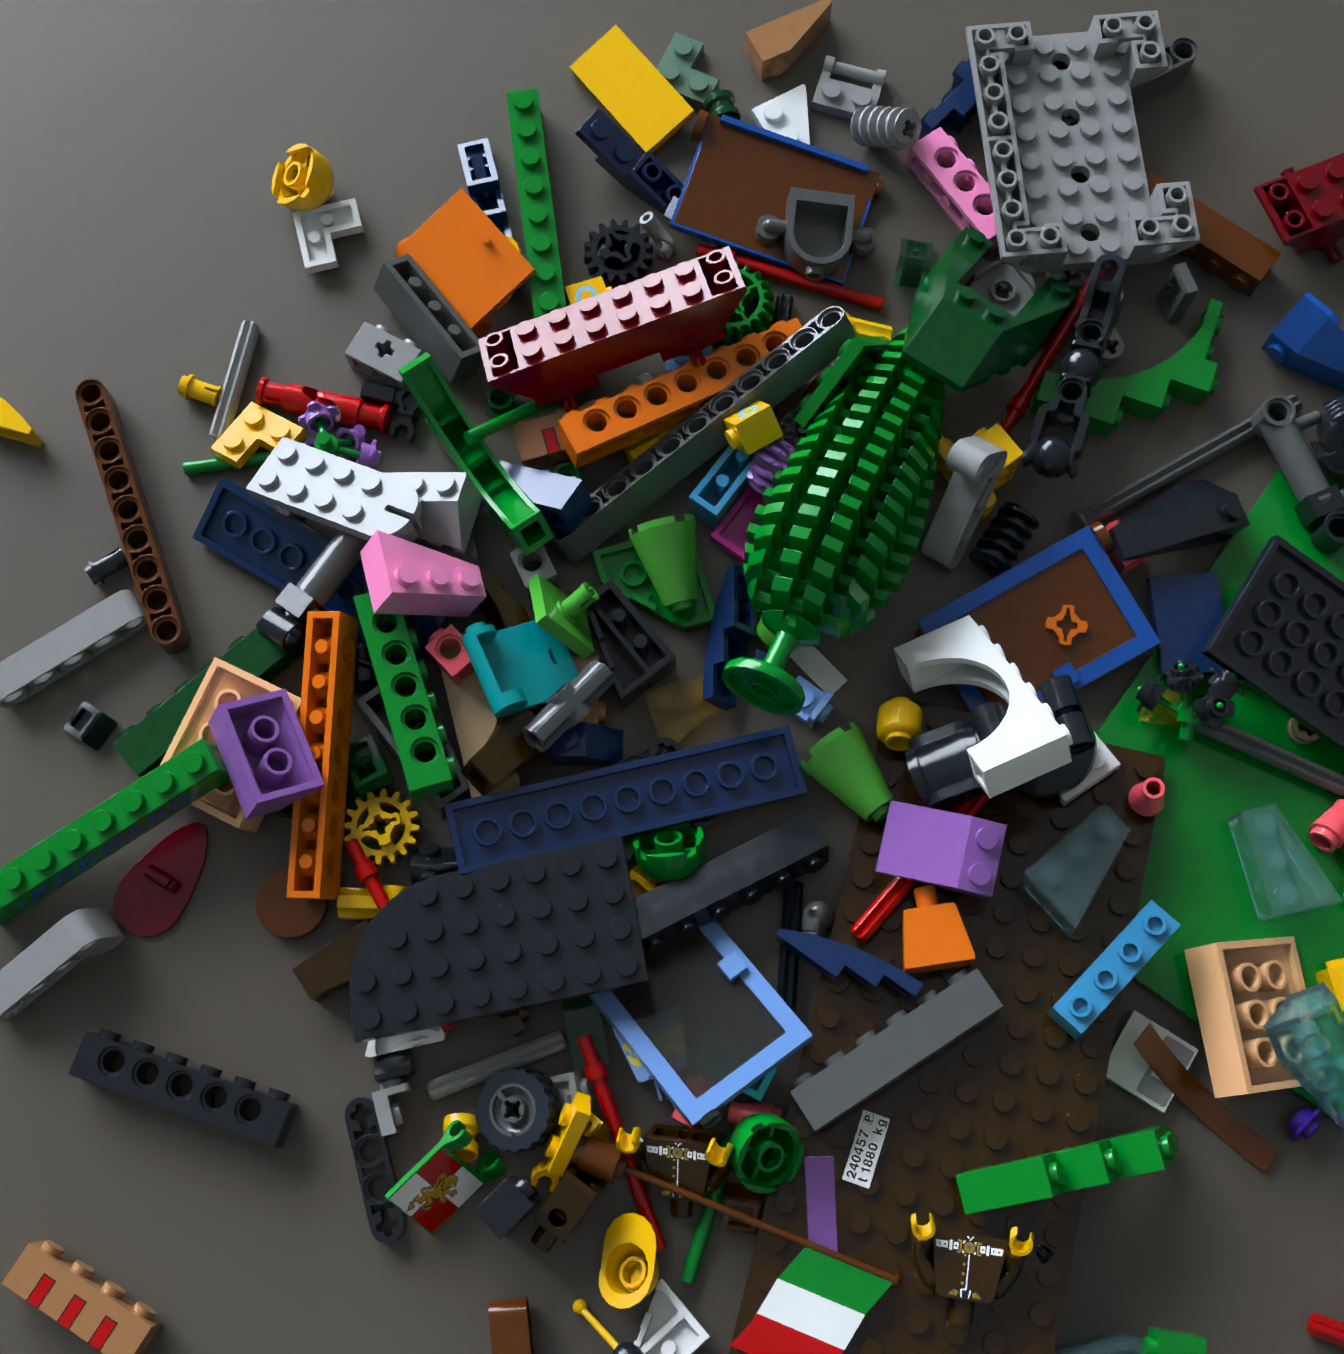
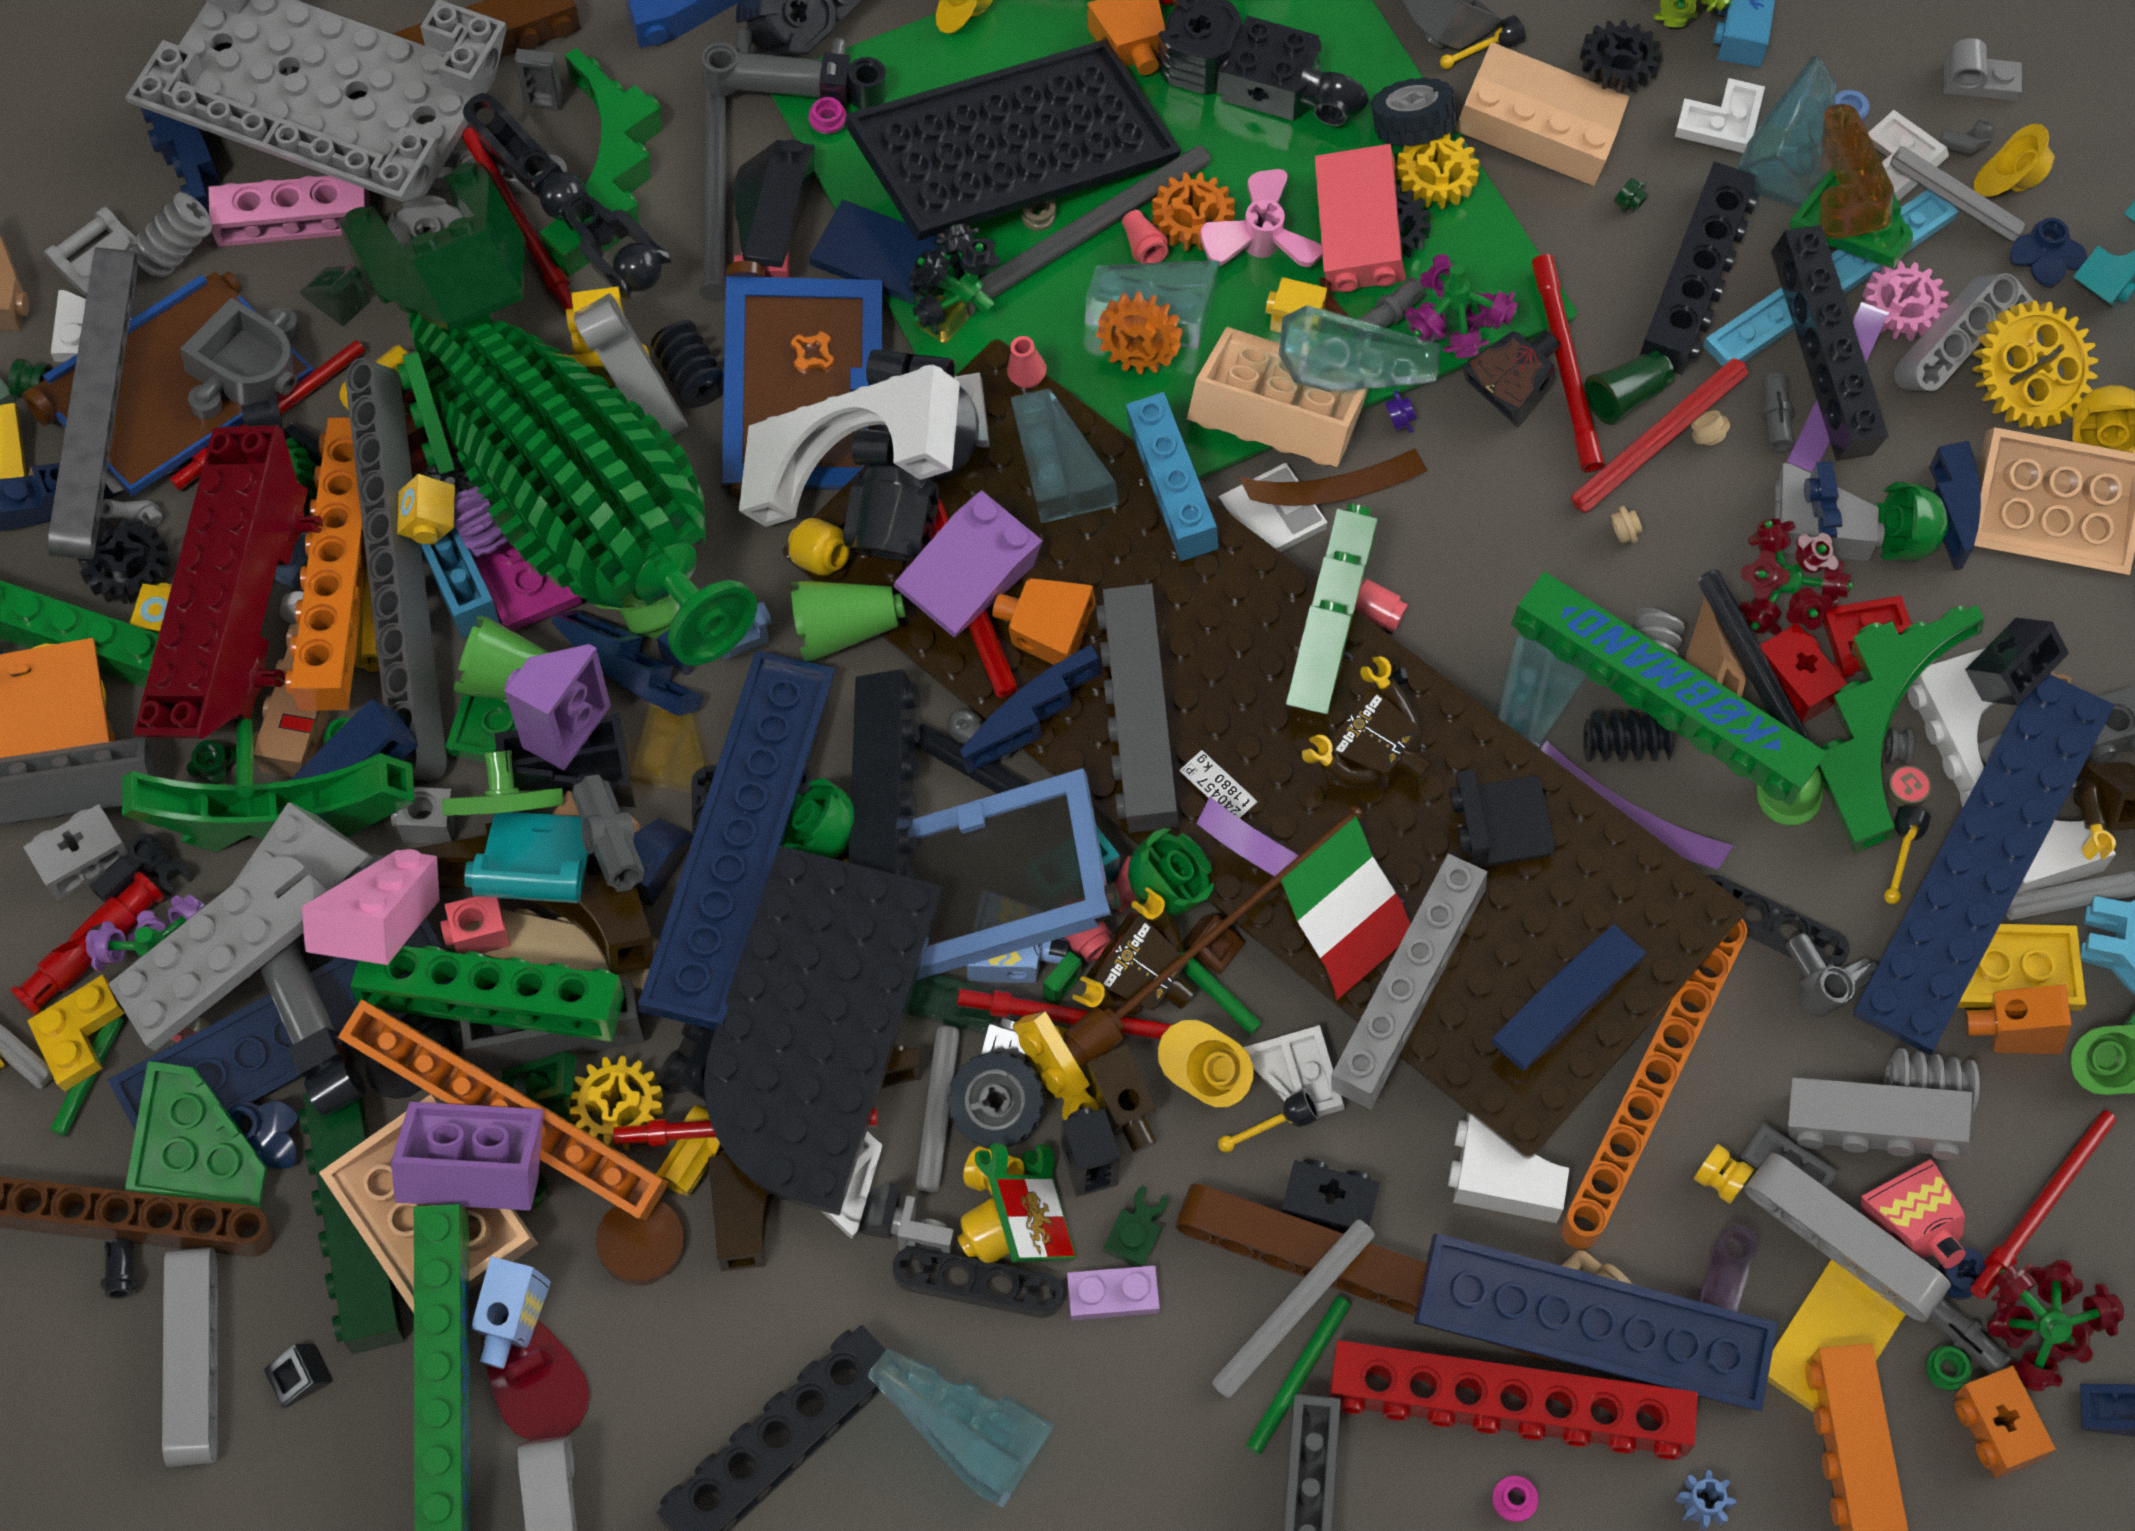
camera: 65 degrees left, 10 degrees down
(189, 841) = (506, 1291): none -> light blue torso
(206, 559) = (190, 1142): none -> green plate
(239, 602) = (269, 1131): none -> dark blue plate
(252, 1233) = (976, 1436): none -> clear light blue wedge
(407, 1152) = (983, 1233): none -> yellow head
(416, 1279) = (1113, 1293): none -> lavender plate
(470, 1271) = (1135, 1234): none -> dark green plate
(638, 611) = (558, 702): none -> medium lavender slope
(645, 1106) = (1062, 979): none -> green tile
(717, 157) = (93, 404): none -> flat silver beam
(779, 274) = (262, 413): none -> black piece
(1111, 1201) = (1380, 605): none -> coral brick
(1235, 871) = (1137, 333): none -> orange gear
(1289, 511) = (824, 108): none -> dark pink plate

